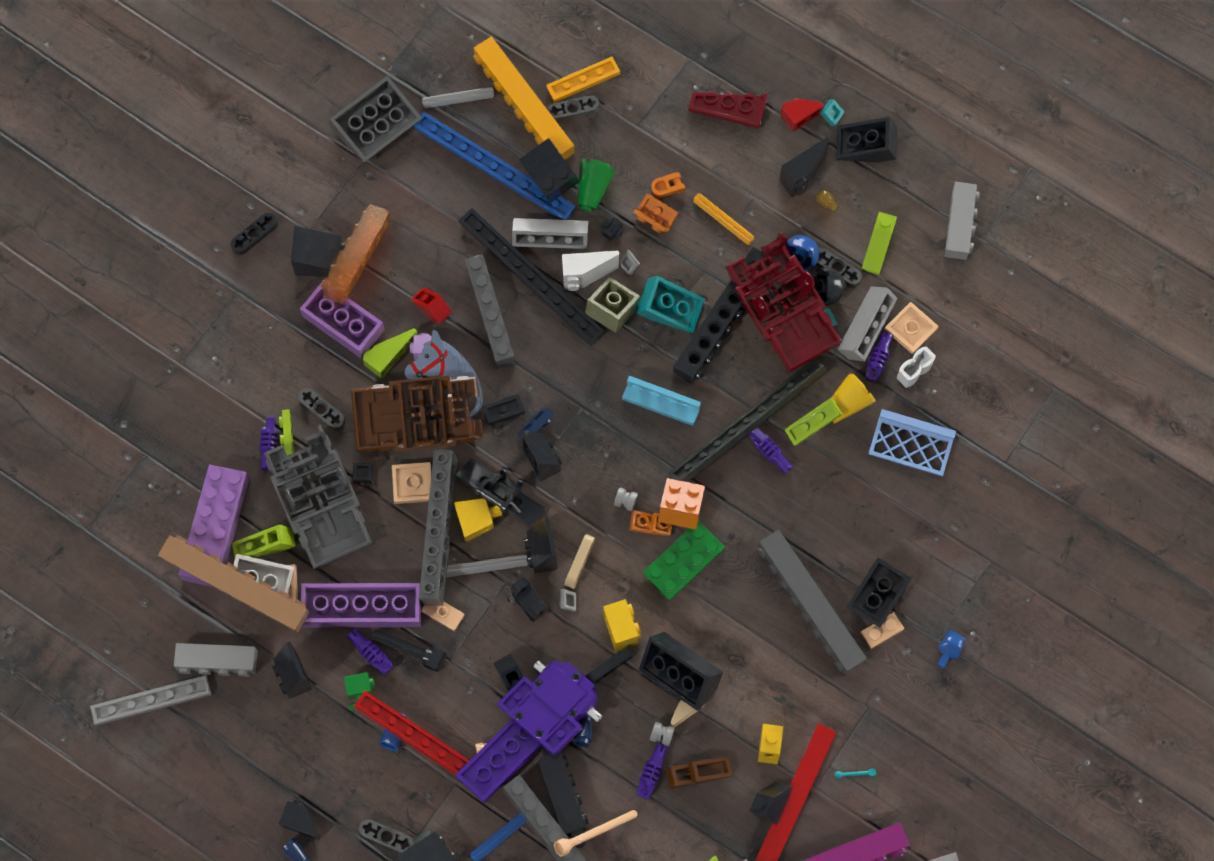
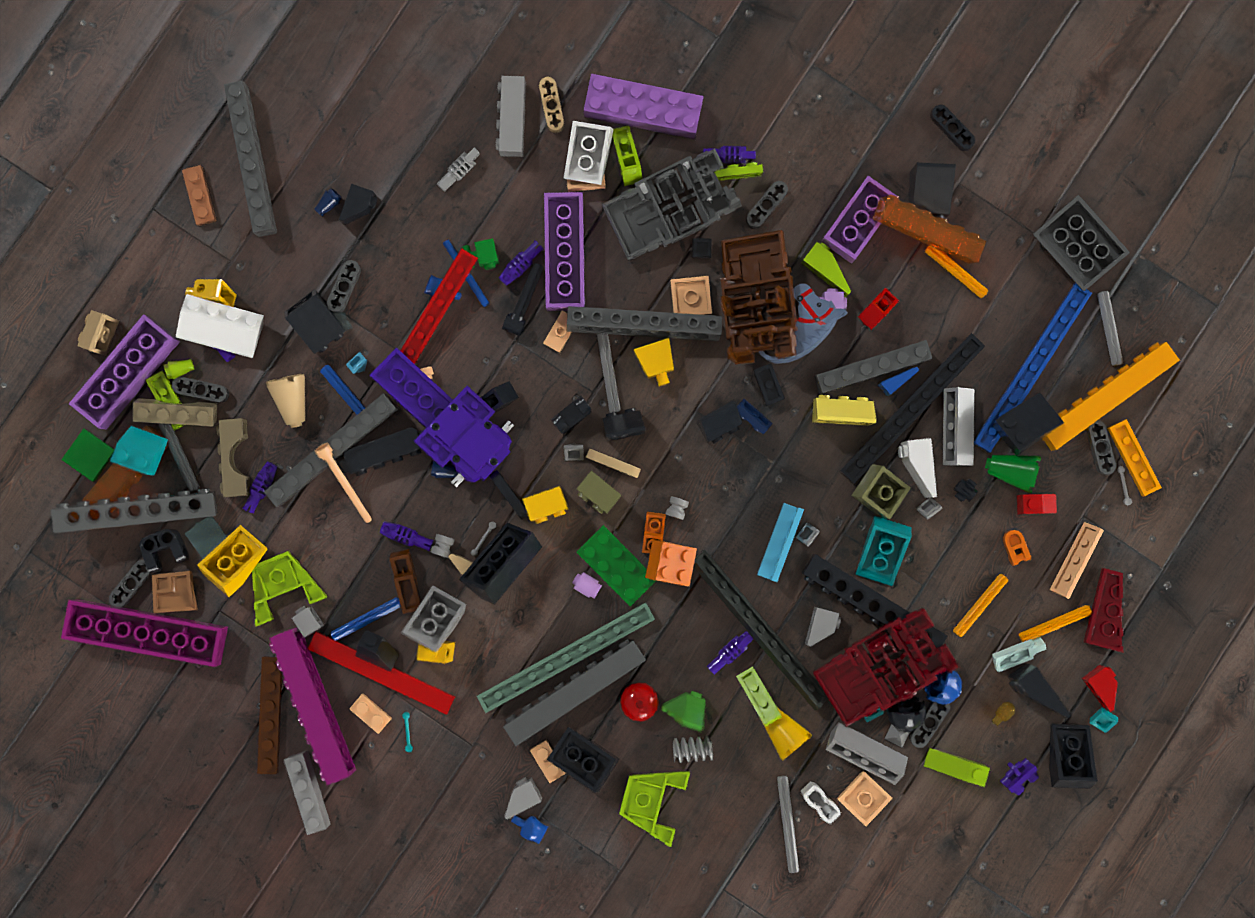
camera: 85 degrees right, 15 degrees up
(150, 700) = (473, 58): light grey tile -> none
(192, 626) = (549, 119): none -> tan beam
(233, 583) = (579, 125): medium nougat brick -> none
(268, 715) = (458, 169): none -> light grey hinge
(291, 672) = (497, 189): black slope -> none
(390, 701) = (470, 280): none -> blue bar
(397, 232) = (957, 271): none -> light orange axle
(469, 822) = (357, 363): none -> medium azure slope
(501, 491) = (685, 387): black piece -> none
(505, 291) = (892, 384): none -> blue slope
(532, 338) = (843, 410): none -> light yellow slope
(609, 573) = (598, 492): none -> olive brick
(624, 87) = (1127, 501): none -> light grey hinge
(626, 167) = (1036, 504): none -> red slope
(641, 685) = (492, 525): none -> light grey hinge
(653, 375) = (807, 534): none -> light grey slope
(656, 213) = (983, 535): orange bracket -> none
(680, 132) = (1076, 560): none -> light nougat plate
(703, 588) = (586, 585): none -> lavender brick
(737, 736) = (435, 619): none -> light grey slope
(738, 815) = (365, 619): none -> blue axle
(741, 153) = (1055, 623): none -> light orange axle
(743, 364) = (822, 625): none -> light grey slope
(770, 186) = (1017, 654): none -> light aqua hinge
(777, 611) = (565, 657): none -> sand green plate
(821, 539) = (639, 701): none -> red cylinder
(825, 488) = (687, 709): none -> bright green wedge
(836, 811) = (370, 713): none -> light nougat plate
(850, 298) = (896, 736): none -> light grey slope
(865, 488) = (692, 748): none -> light grey piece
(878, 358) = (830, 763): dark purple hinge -> none
(885, 188) = (1018, 775): none -> dark purple hips
(916, 426) = (757, 800): light blue fence -> none
(916, 535) = (644, 798): none -> lime wing
(919, 655) = (523, 797): none -> light grey slope
(938, 399) = (788, 826): none -> light grey axle
(961, 220) = (984, 853): light grey brick -> none

